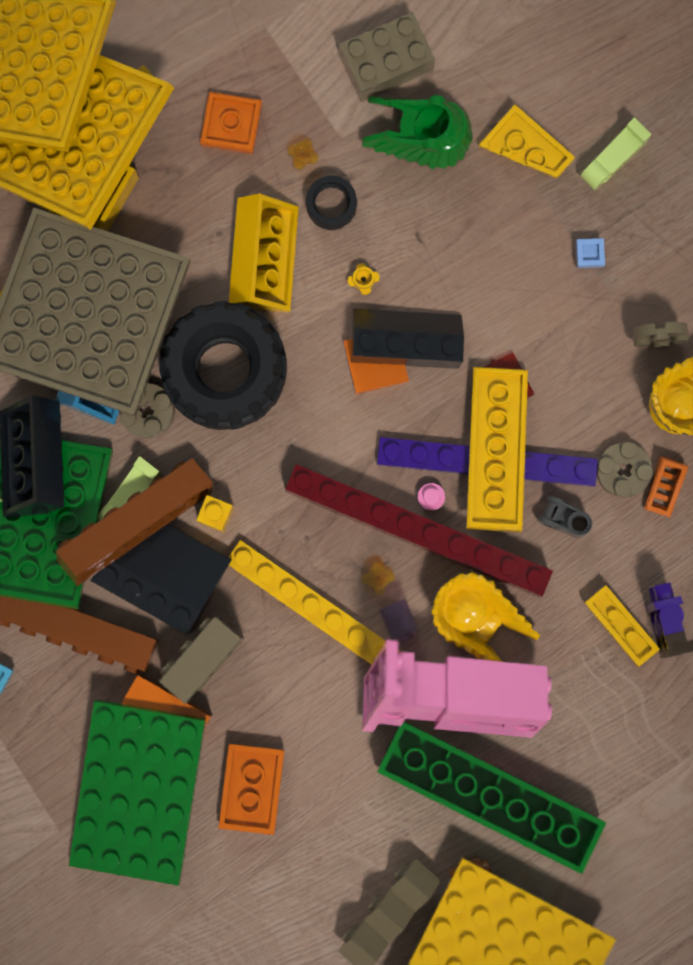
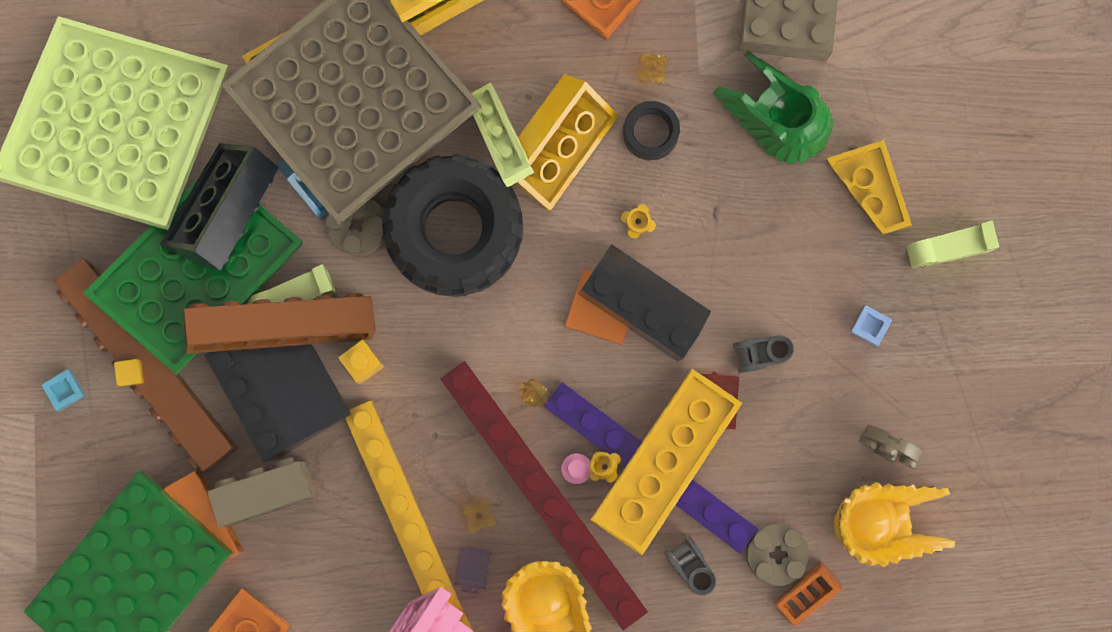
camera: 30 degrees right, 0 degrees up
(39, 630) = (128, 372): none -> yellow piece
(220, 275) = (500, 137): none -> yellowish green plate
(363, 458) = (534, 393): none -> clear yellow plate
(445, 481) = (598, 461): none -> yellow plate
(517, 326) = (761, 353): none -> dark grey piece

